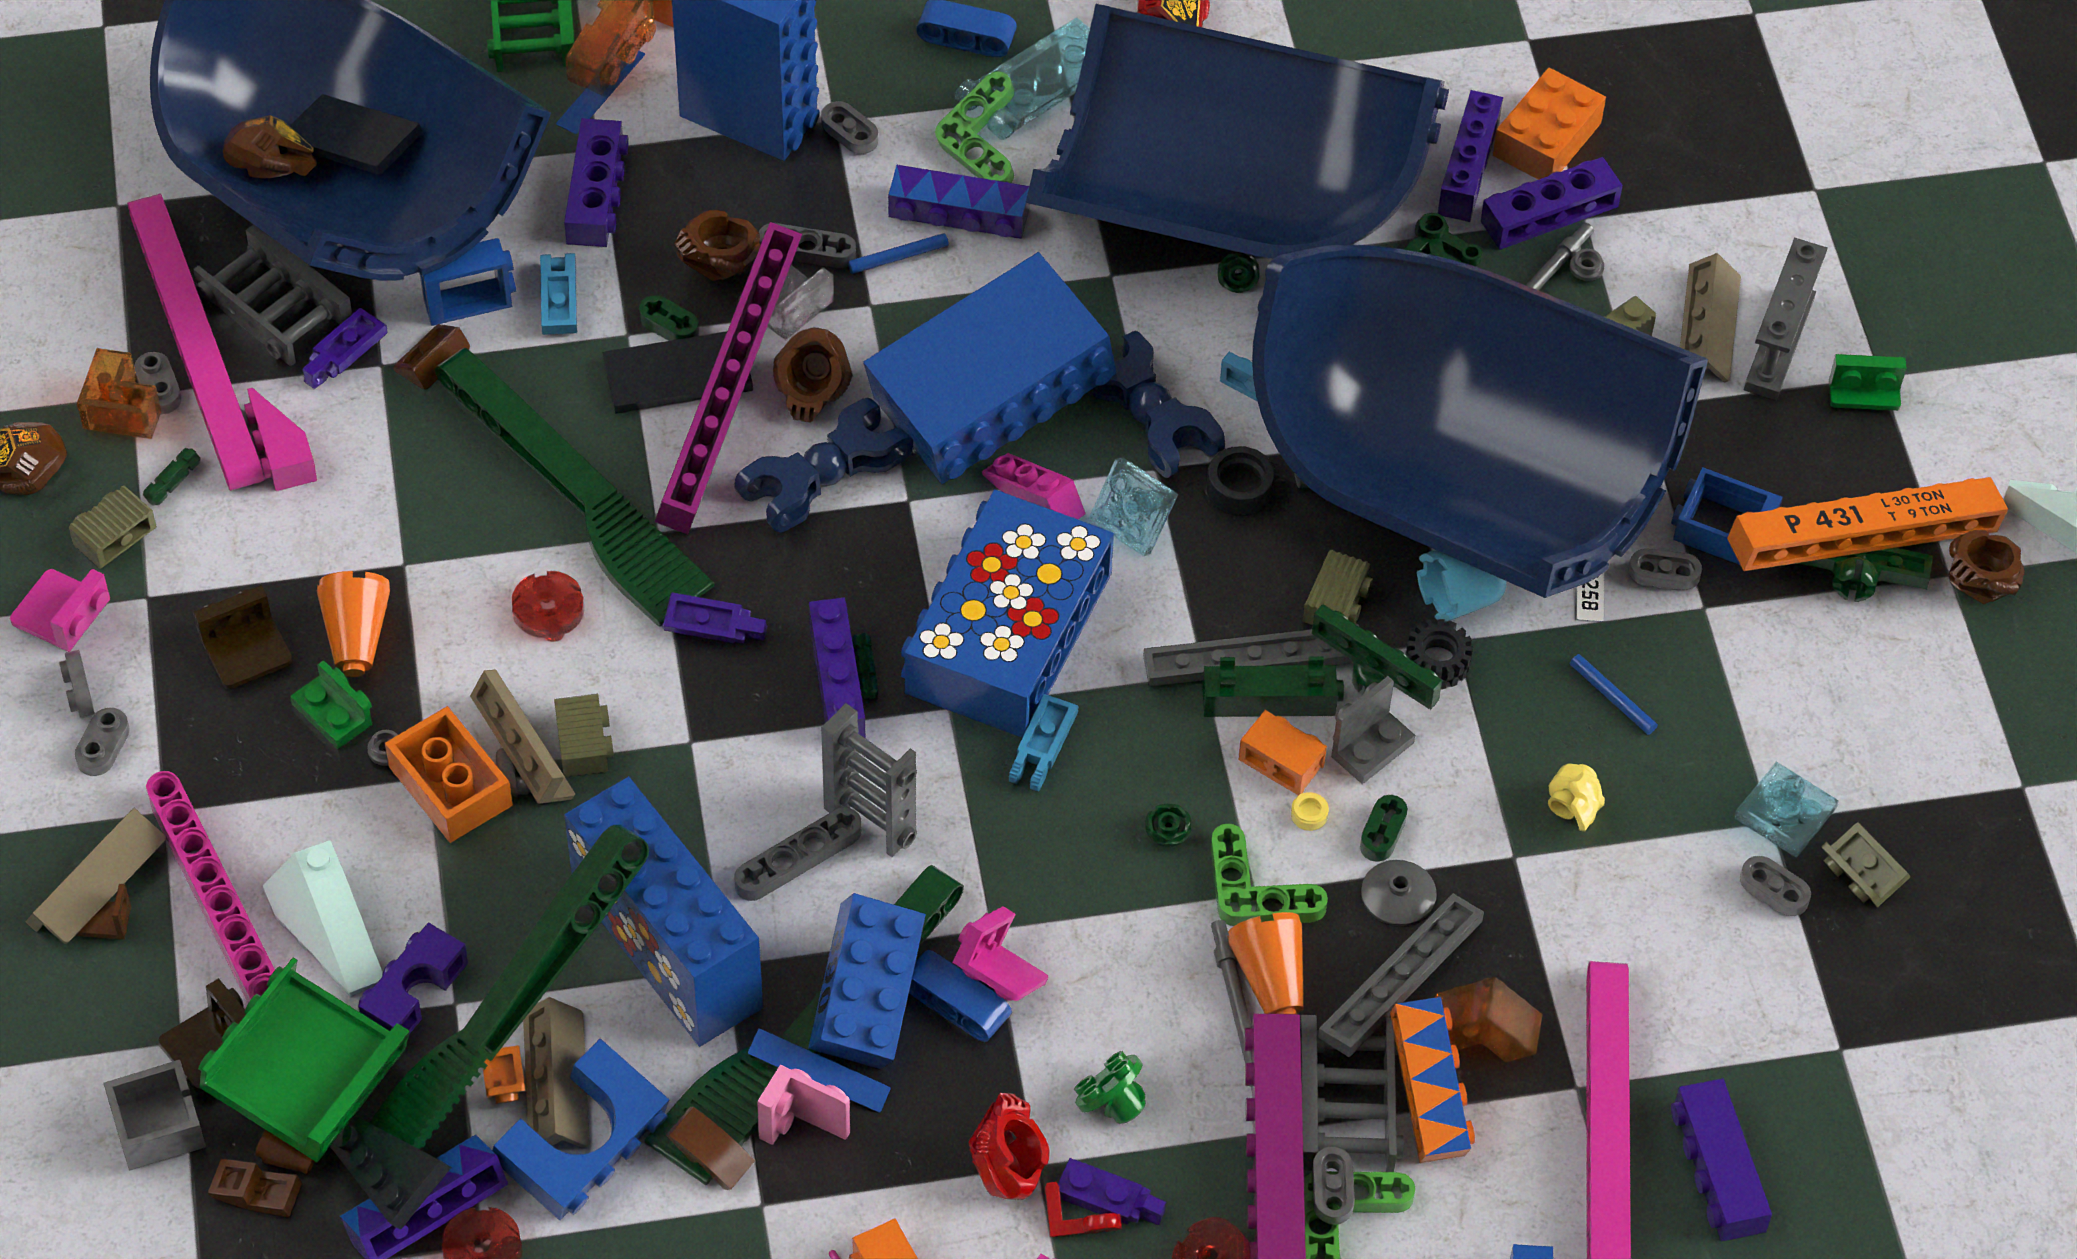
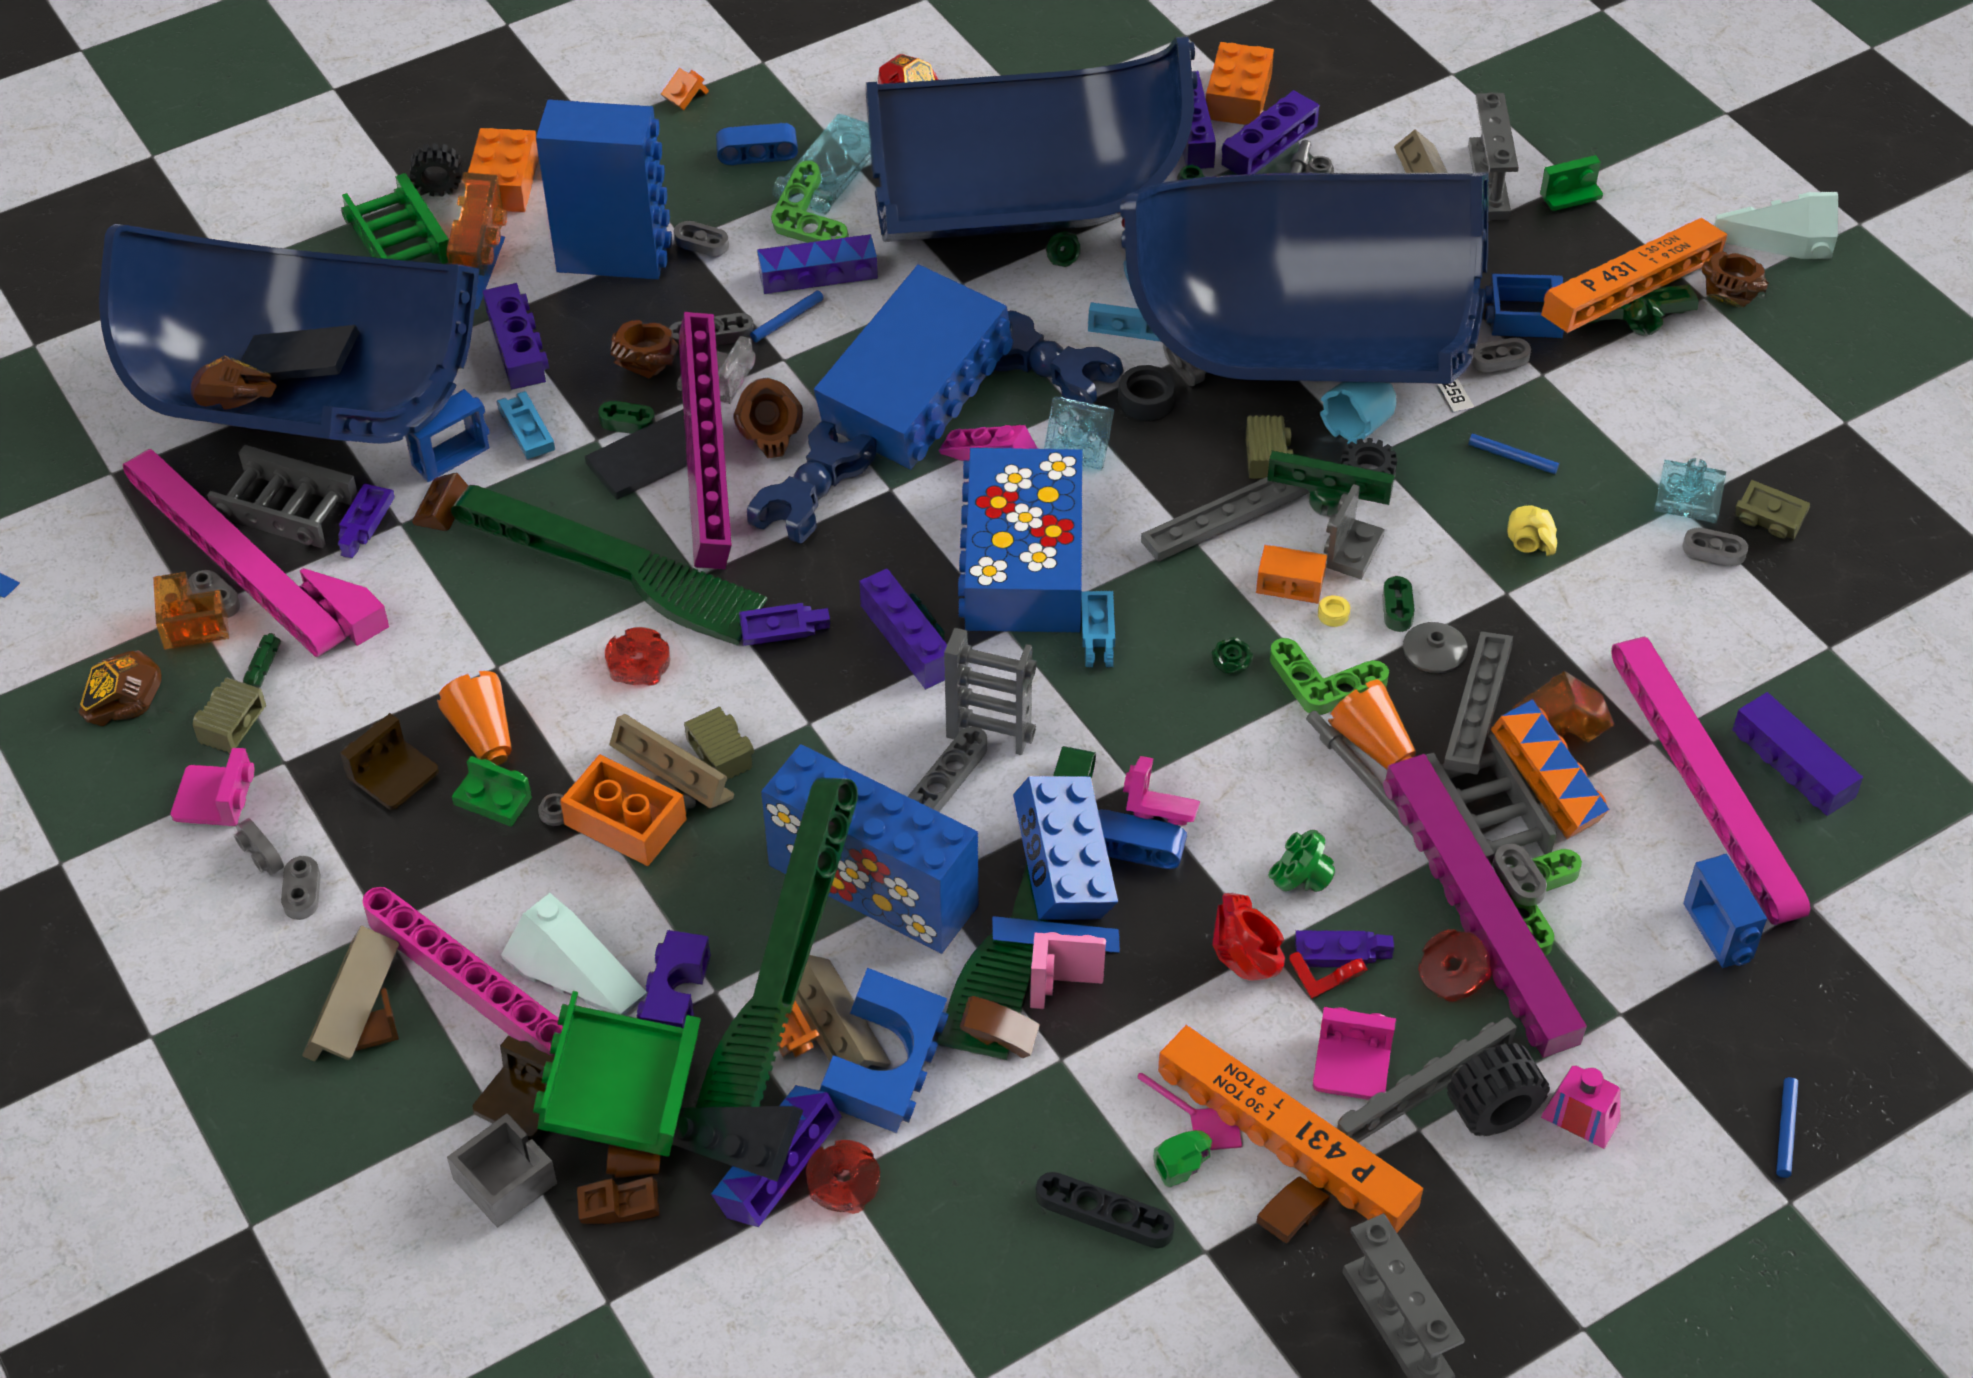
camera: 20 degrees left, 5 degrees down
(1278, 689) = (1245, 535): dark green brick -> none

